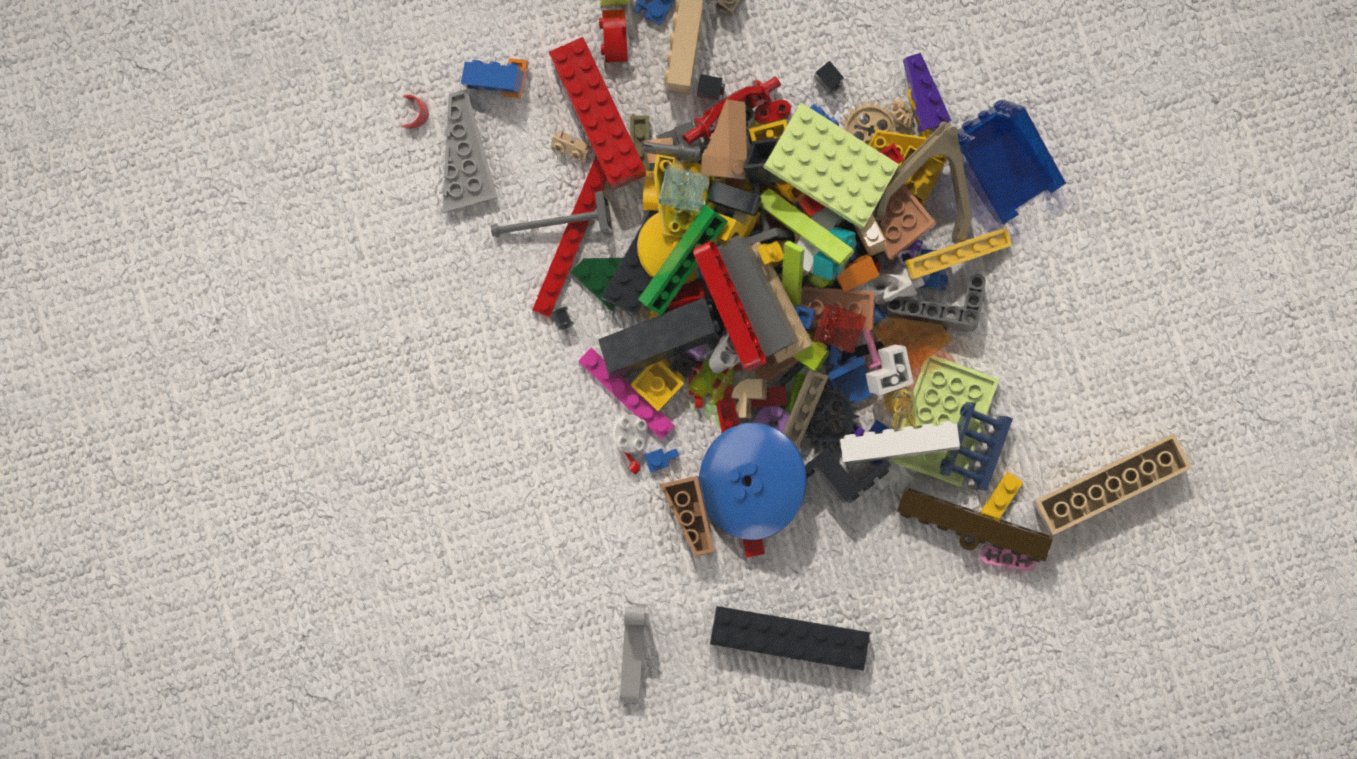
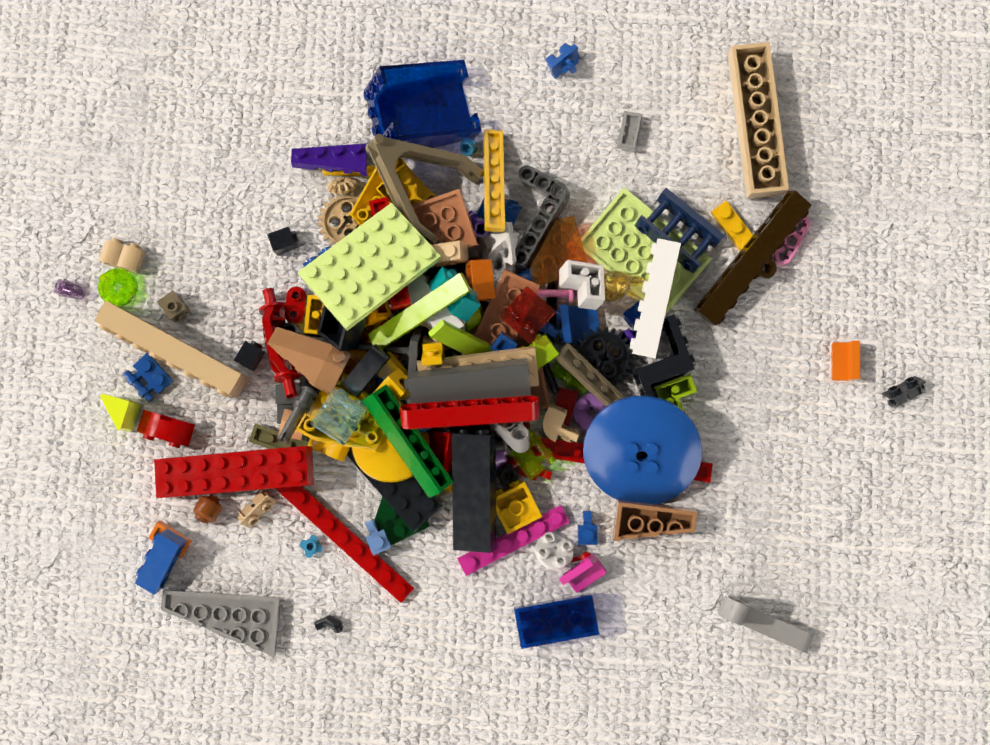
camera: 65 degrees left, 0 degrees up
(423, 113) = (171, 641): red helmet -> none
(491, 252) = (330, 622): none -> black arm
(549, 208) = (305, 544): none -> dark azure plate
(554, 102) = (207, 509): none -> dark orange head
(562, 318) = (419, 576): black bush -> none
(567, 457) = (556, 620): none -> clear blue brick
(582, 267) = (377, 540): none -> medium blue plate
(601, 214) = (332, 502): dark grey tile -> none
(619, 468) = (583, 573): none -> dark pink panel
(789, 638) = (800, 469): black brick -> none
(820, 493) = (676, 389): none -> lime brick
(907, 720) = (911, 386): none -> black hinge
(908, 648) = (845, 361): none -> orange panel
(984, 218) = (465, 149): none -> dark azure plate
(1056, 366) = (629, 131): none -> light grey plate
(1101, 280) = (565, 62): none -> blue hips

